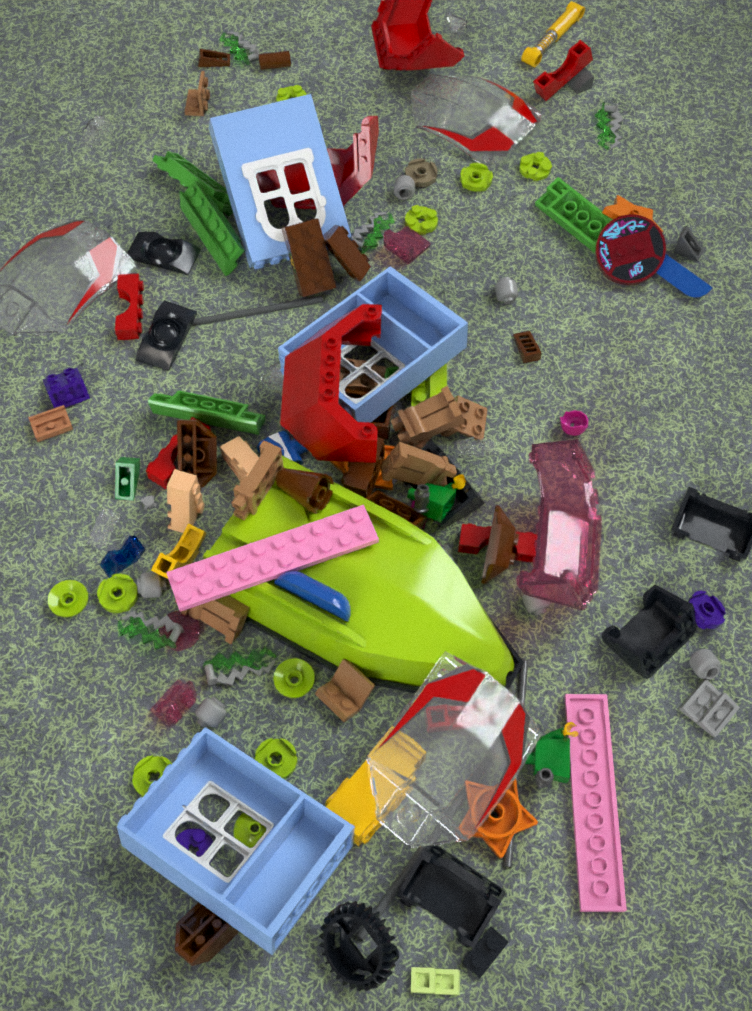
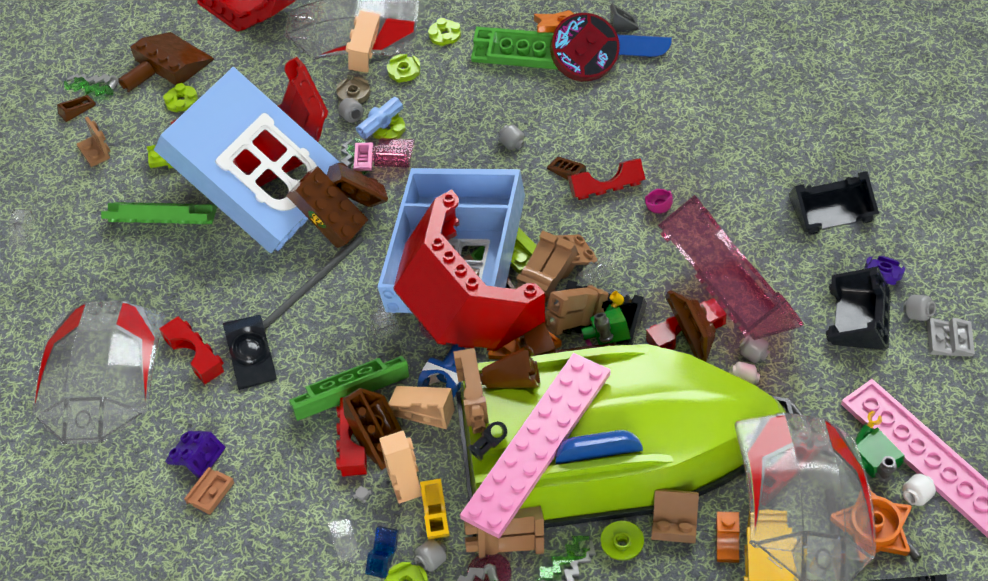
camera: 30 degrees left, 10 degrees down
(126, 478) = (325, 487): green slope -> none
(163, 252) = (179, 288): black slope -> none
(211, 227) = (210, 240): bright green slope -> none
(237, 529) = (487, 441): none -> black connector
(313, 59) = (170, 56): none -> reddish brown slope
(371, 735) = (727, 537): none -> orange arch
(380, 224) = (363, 157): none -> bright pink slope
(417, 208) = (379, 117): none -> light blue piece
(458, 132) = (362, 40): none -> light nougat wedge
(506, 616) = (746, 372): none -> white head
(526, 369) = (628, 172): none -> red arch
(557, 814) = (918, 489): none -> white head

